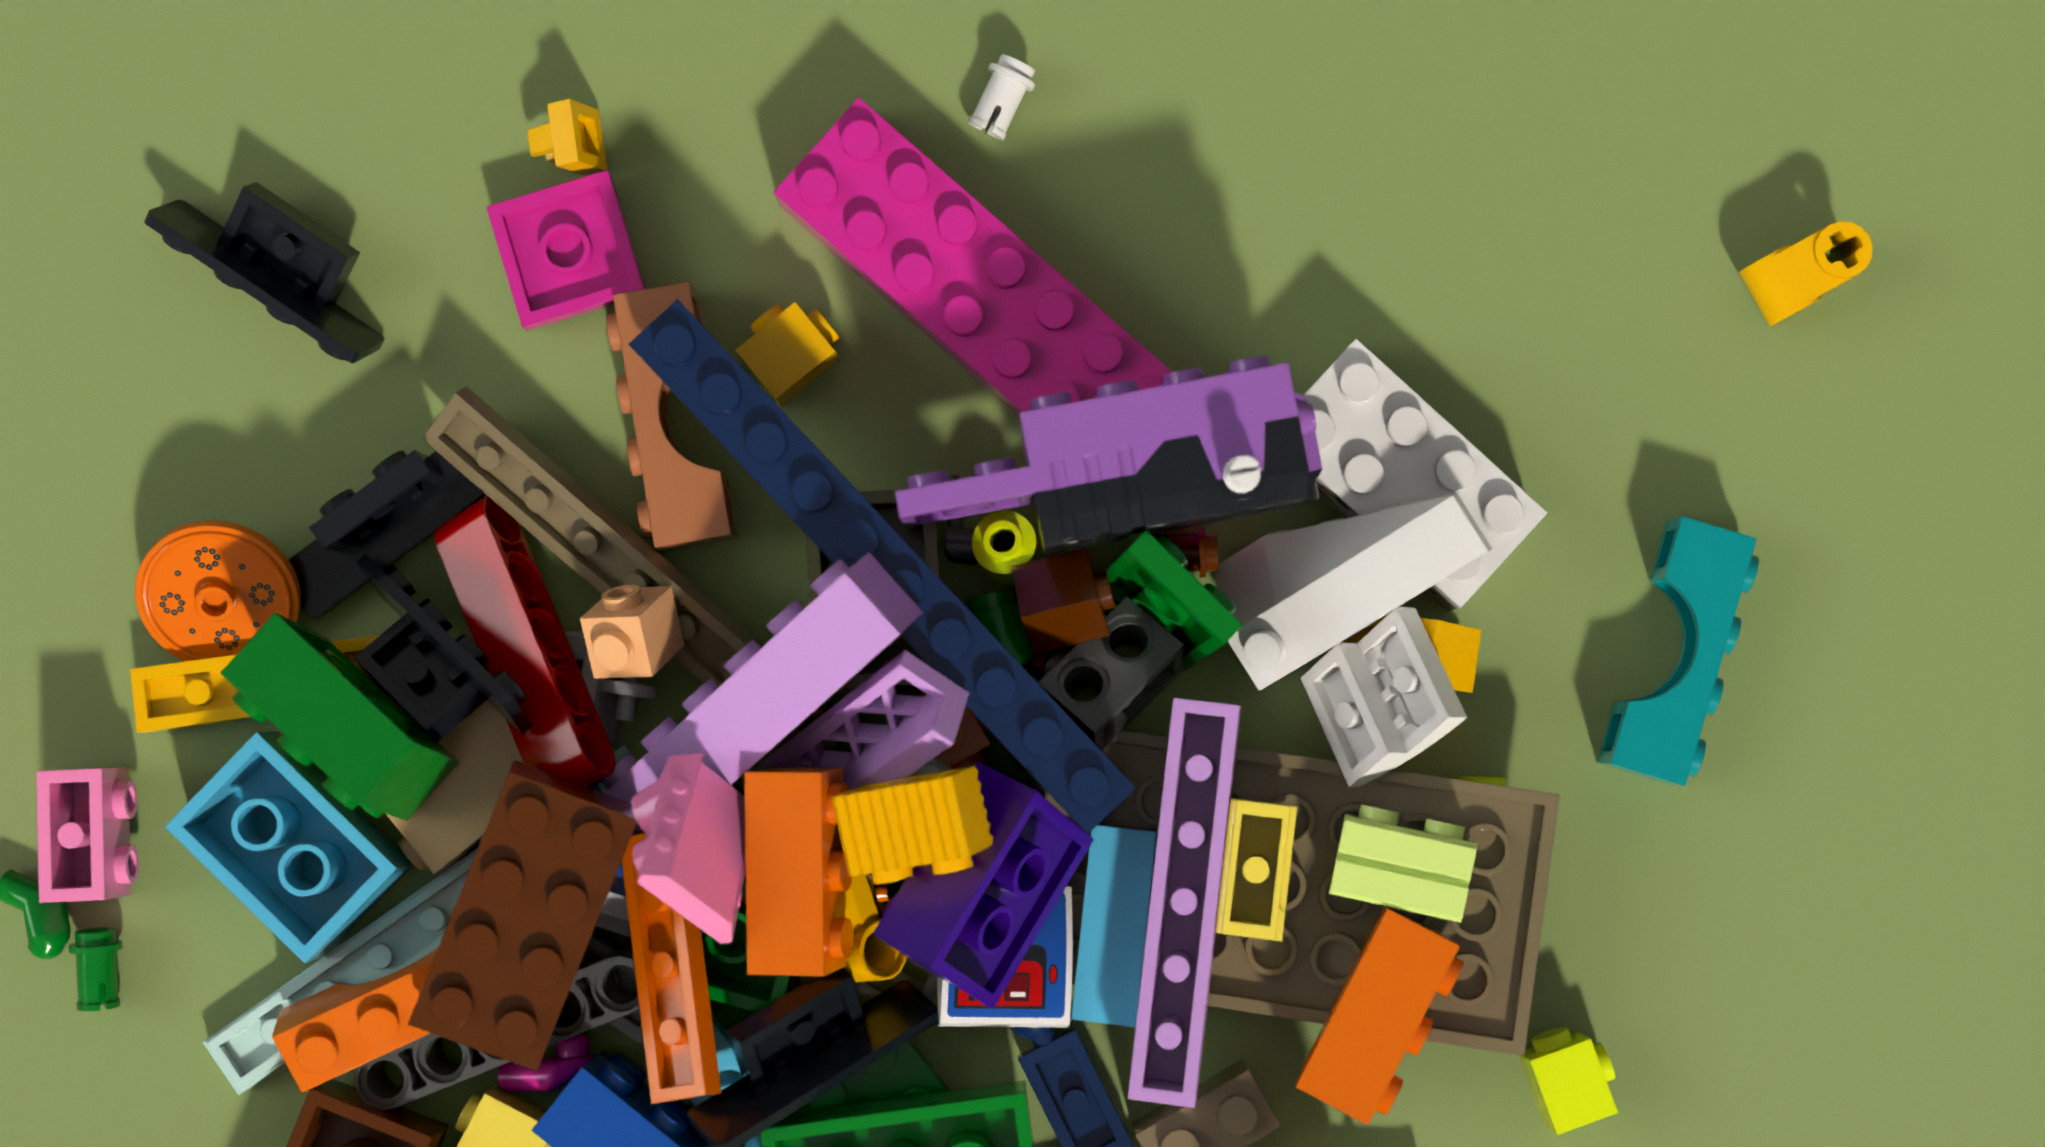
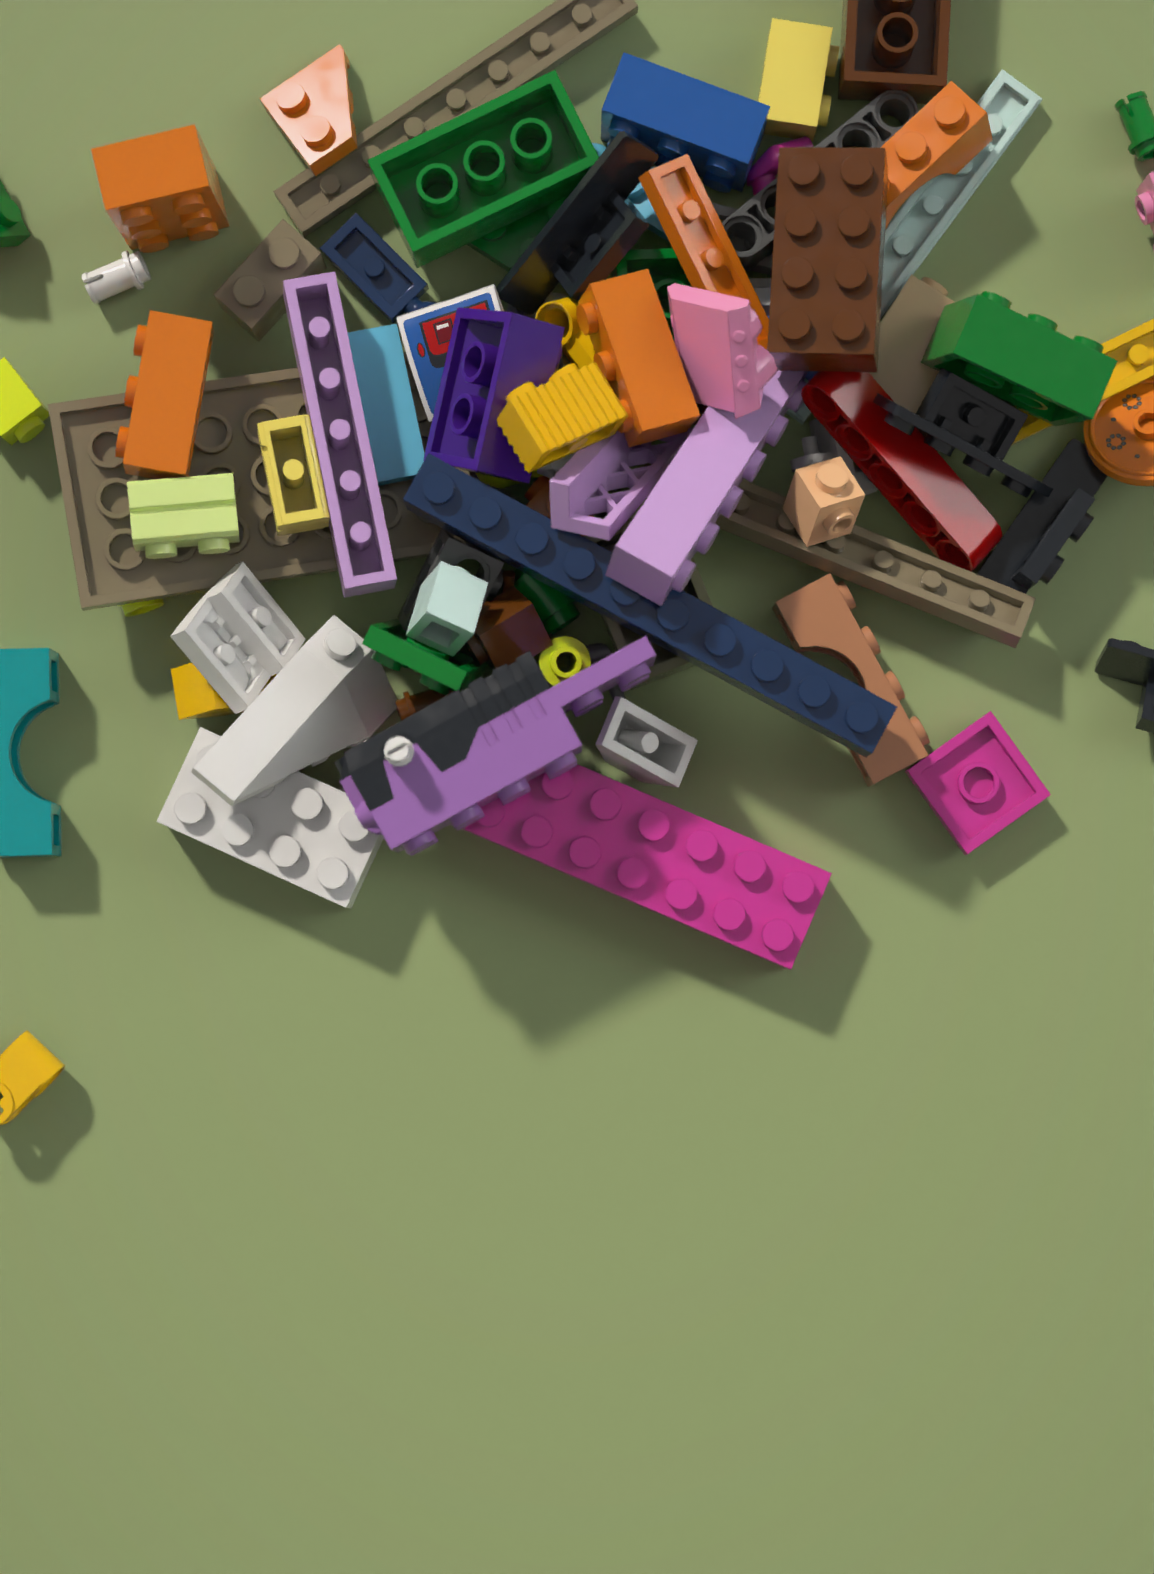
camera: 165 degrees right, 0 degrees up
(289, 847) = (1029, 256): medium azure brick -> none
(570, 138) = (1003, 870): yellow tile -> none
(789, 350) = (780, 761): yellow brick -> none
(939, 412) = (644, 745): none -> white slope
(1004, 93) = (682, 1017): white pin -> none
(1124, 643) = (447, 608): none -> light aqua brick

